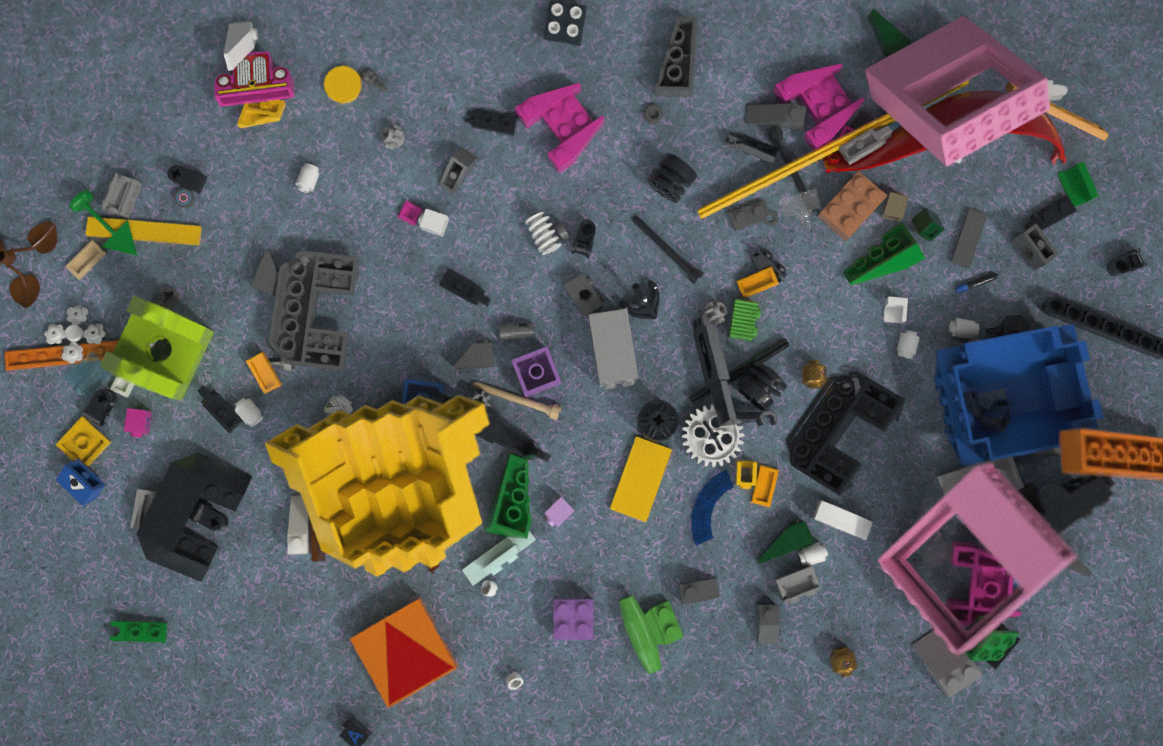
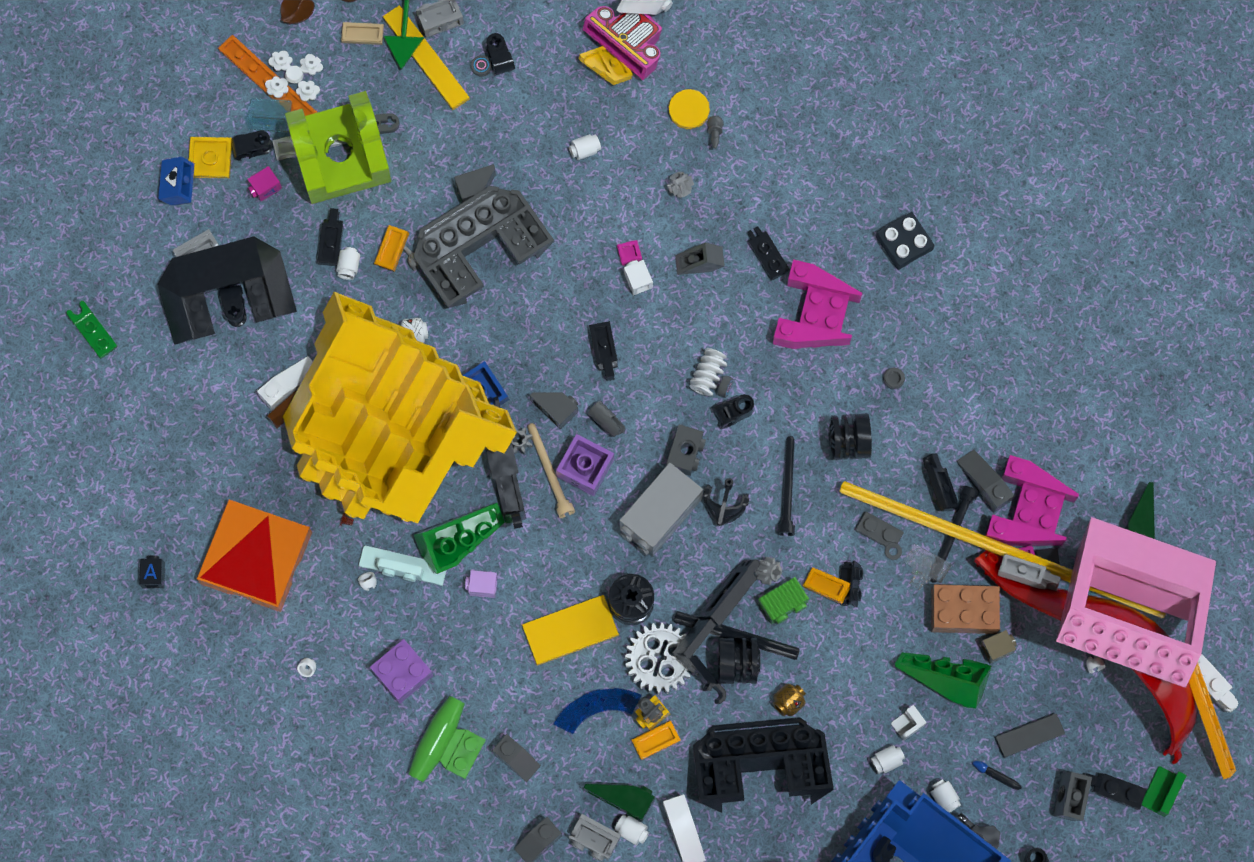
camera: 45 degrees right, 10 degrees down
(678, 69) = (959, 360): dark grey wedge -> none
(750, 475) = (652, 712): none -> dark grey hinge
(928, 224) = (1009, 689): dark green panel -> none

